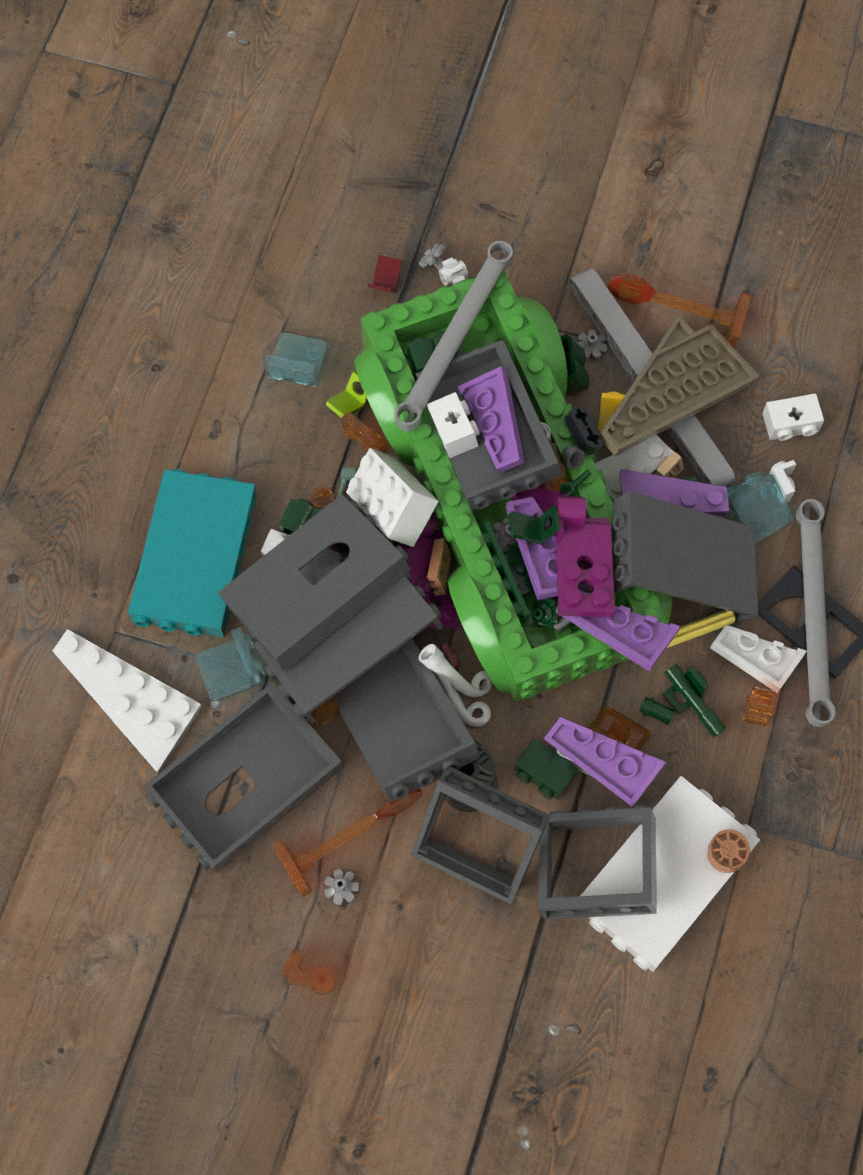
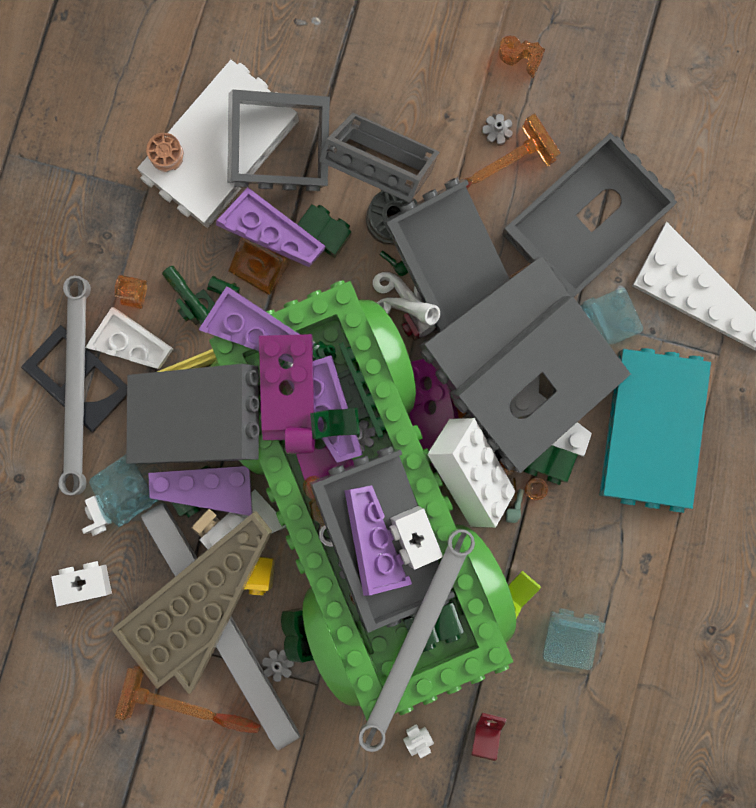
camera: 175 degrees right, 15 degrees up
(355, 429) = (509, 560): clear orange plate -> none
(433, 257) = (440, 762): light grey plant -> none
(439, 566) = (423, 407): nougat tile -> none
(567, 486) = (296, 477): dark green hand -> none
(575, 454) = (297, 503): dark grey hinge -> none
(584, 430) = (286, 535): black beam -> none

